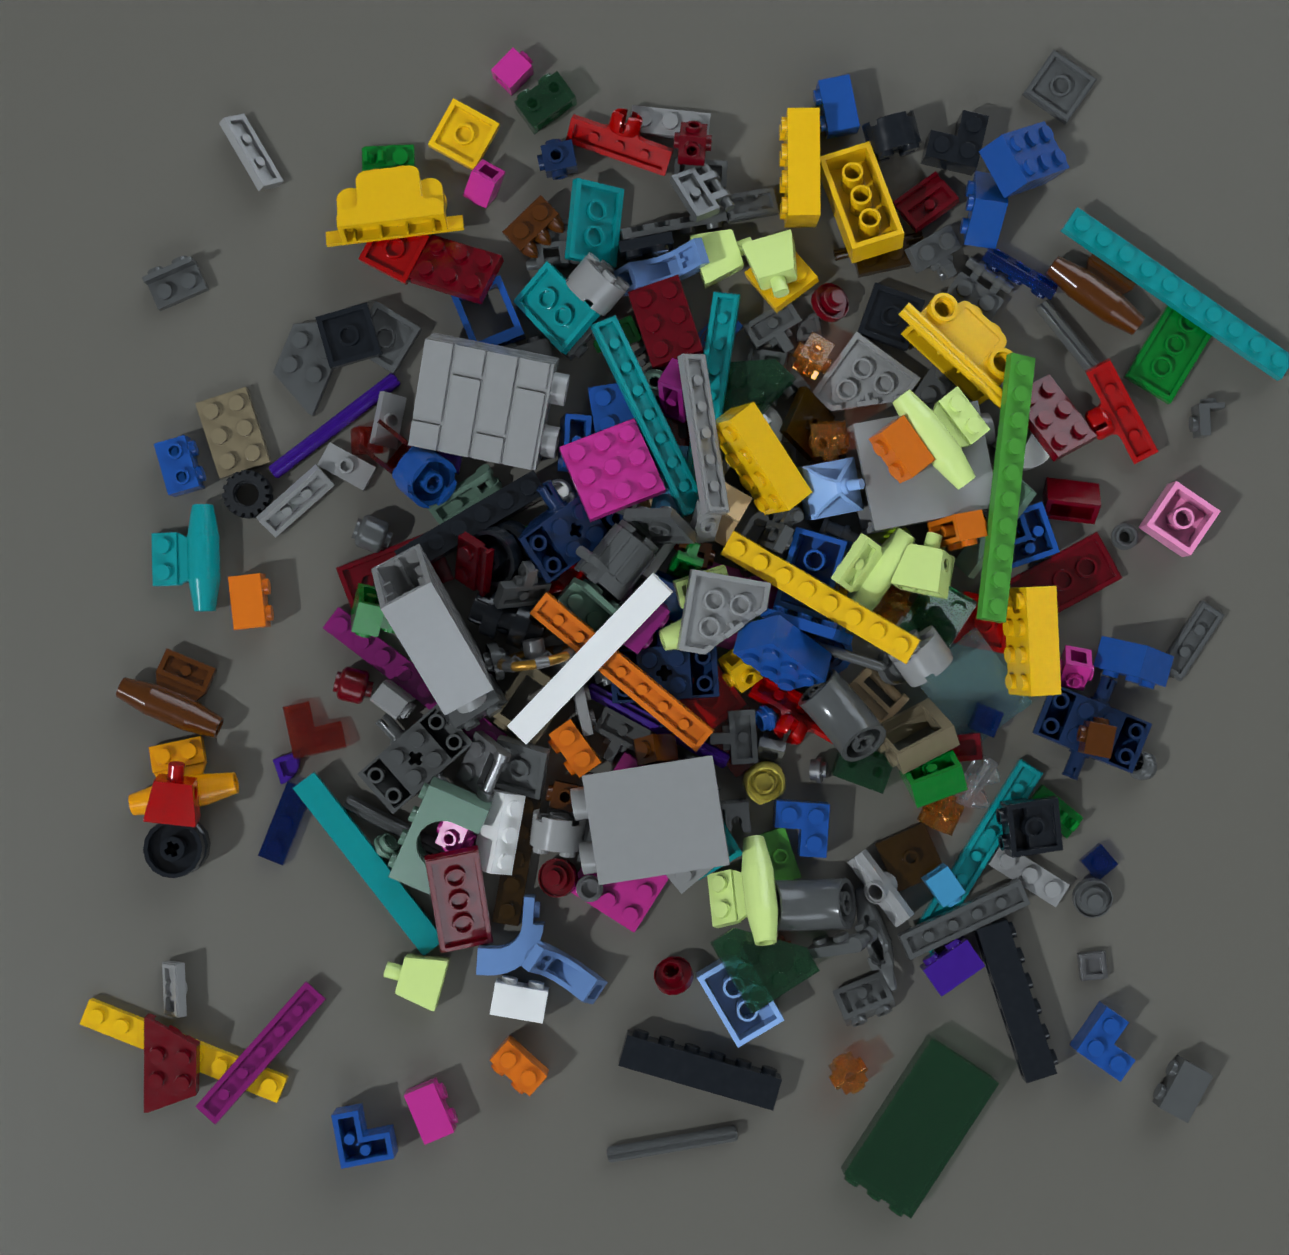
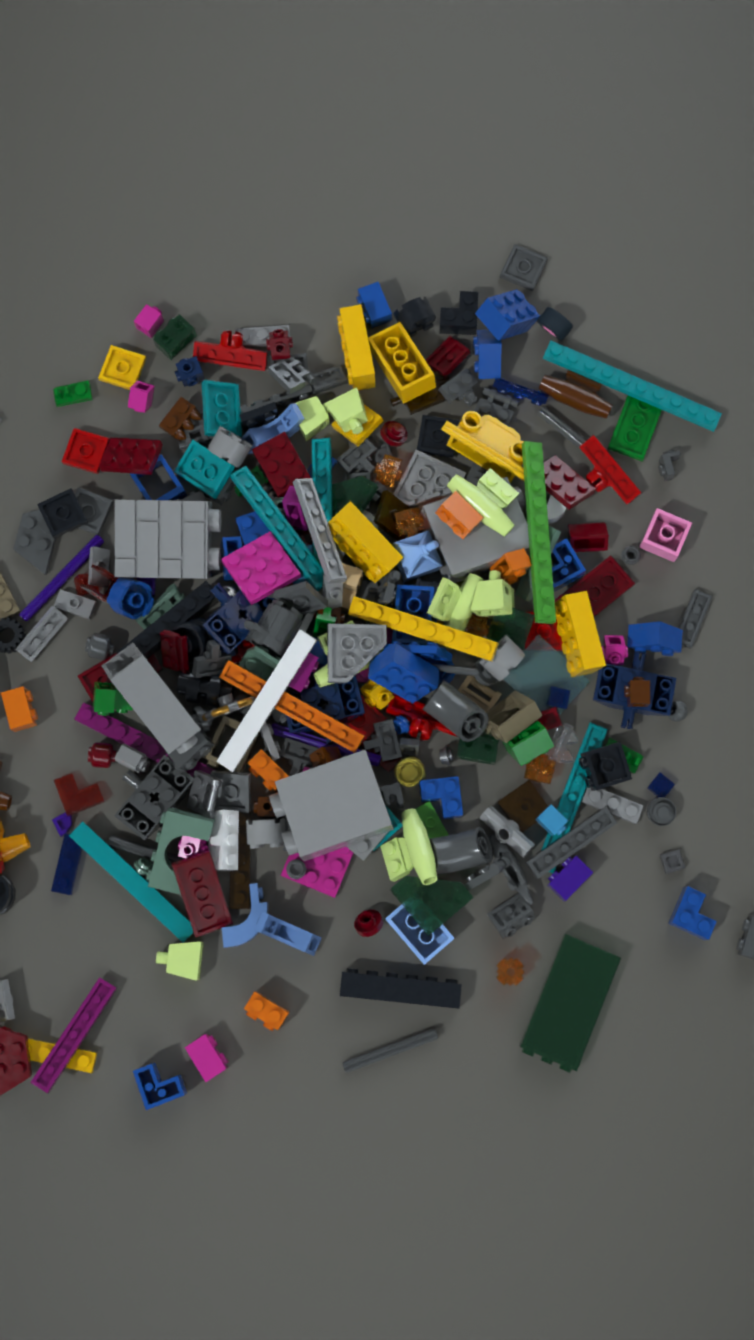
camera: 10 degrees left, 10 degrees down
(391, 206) = (79, 422): yellow brick -> none
(519, 999) = (258, 961): white brick -> none
(557, 877) = (272, 867): dark red plate -> none
(1015, 1000) = (621, 896): black brick -> none
(1088, 181) = (555, 323): none -> black wheel

